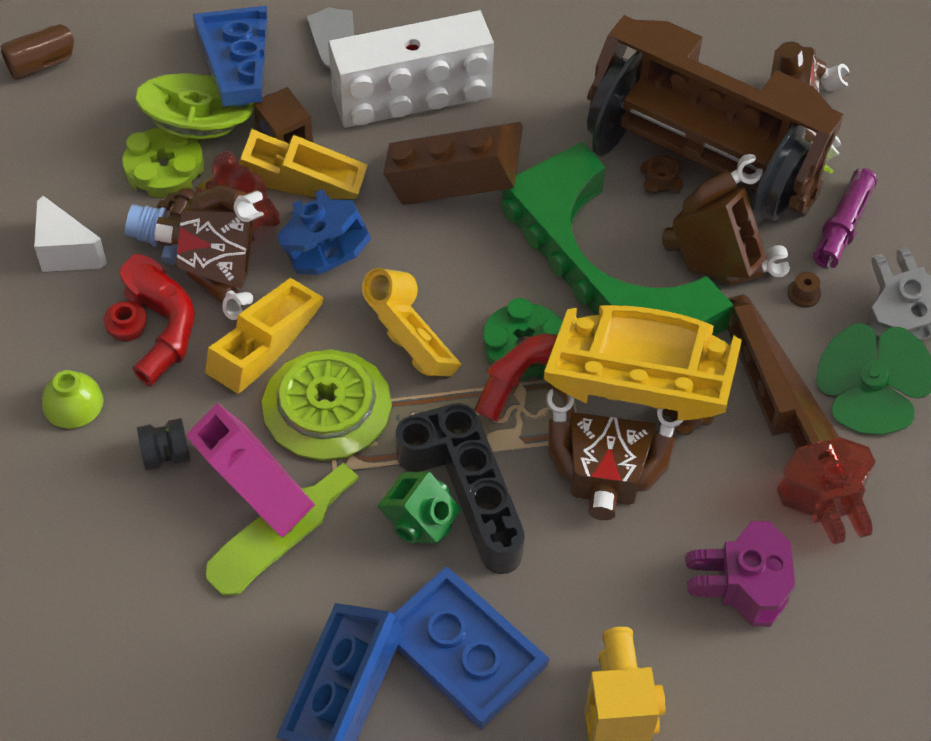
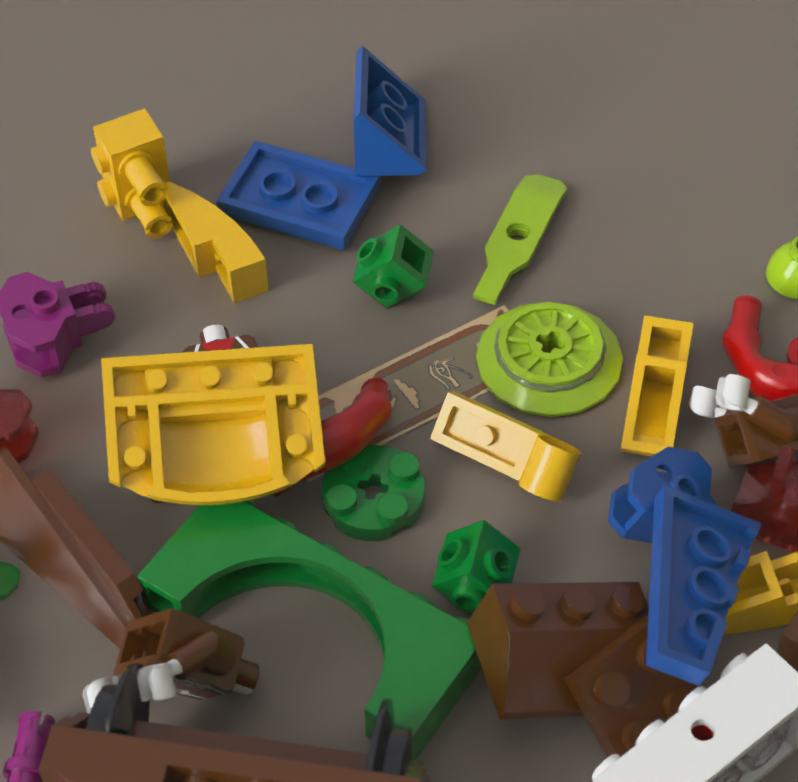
camera: 160 degrees right, 5 degrees down
(163, 444) = (680, 248): black wheel -> none
(250, 469) = (585, 243): dark pink slope -> none
(354, 139) = (693, 581): none -> blue wing
(436, 118) = (623, 693): none -> reddish brown plate
(472, 488) = (361, 327): black beam -> none
(483, 238) = (473, 562): none -> green brick
(566, 612) = (216, 243): none -> yellow slope
(805, 290) = (56, 683): reddish brown piece -> none

